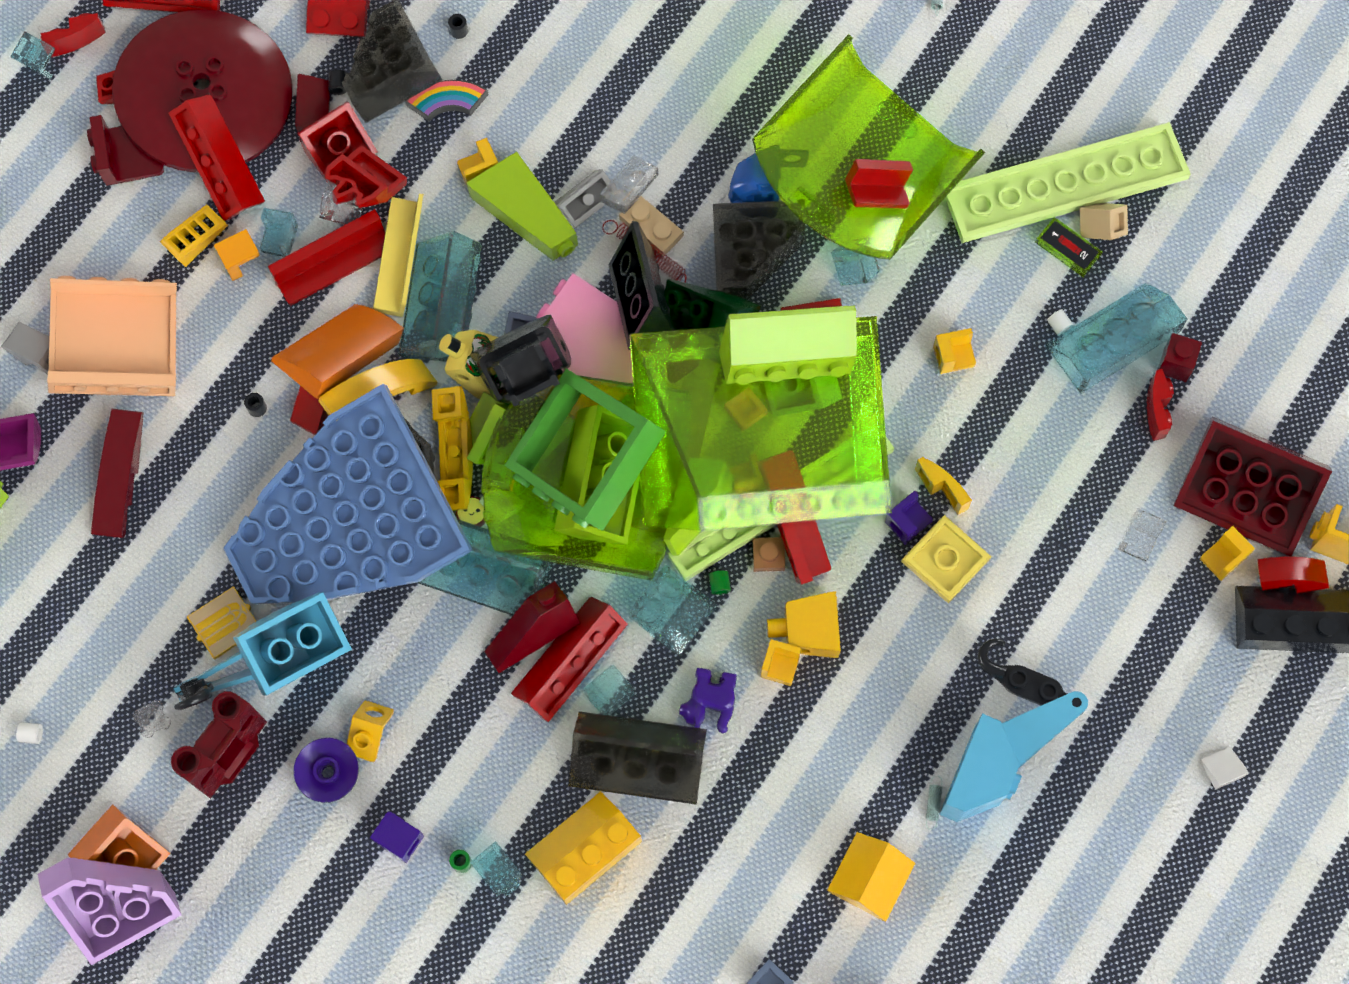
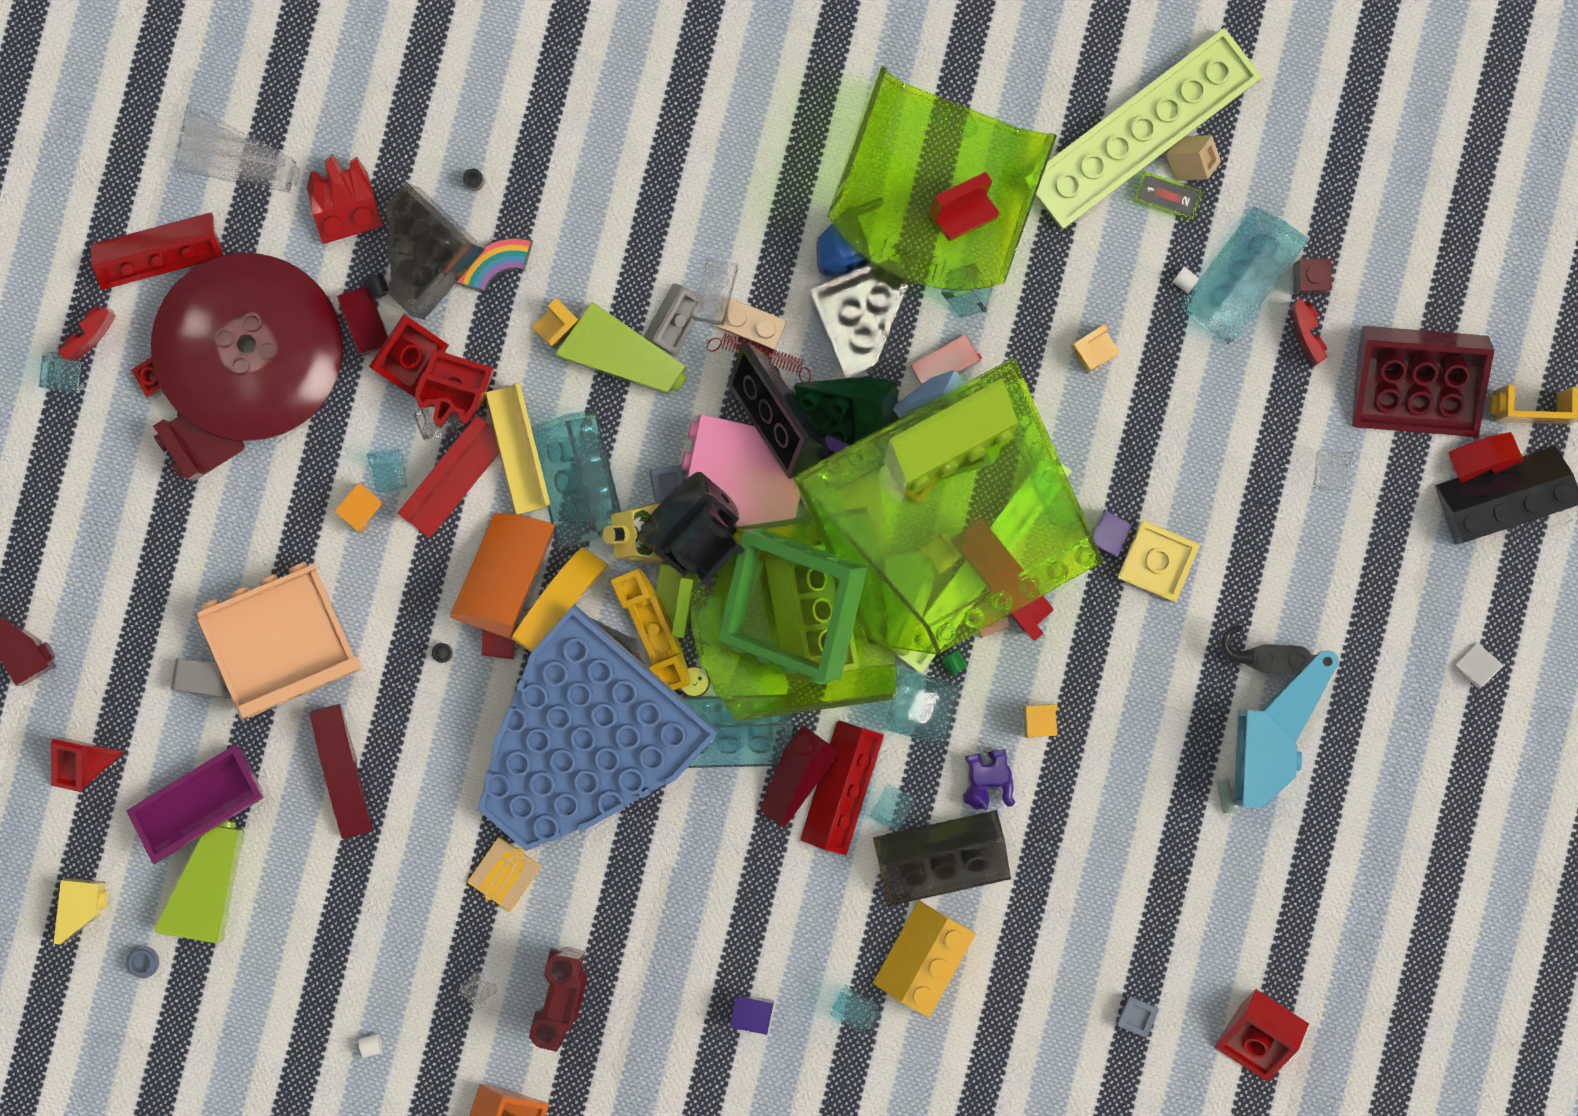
camera: 20 degrees left, 15 degrees up
(193, 249) = (290, 509): yellow slope -> none
(216, 156) = (296, 417): red panel -> none
(275, 650) = (569, 892): medium azure slope -> none
(318, 756) = (651, 991): dark purple dish -> none
(367, 731) = (683, 928): yellow bracket -> none
(460, 853) = (820, 1019): green piece -> none
(810, 625) = (1054, 675): yellow torso -> none
(871, 875) = (1192, 885): yellow slope -> none
(937, 478) = (1121, 486): yellow slope -> none
(1227, 553) = (1418, 458): yellow panel -> none

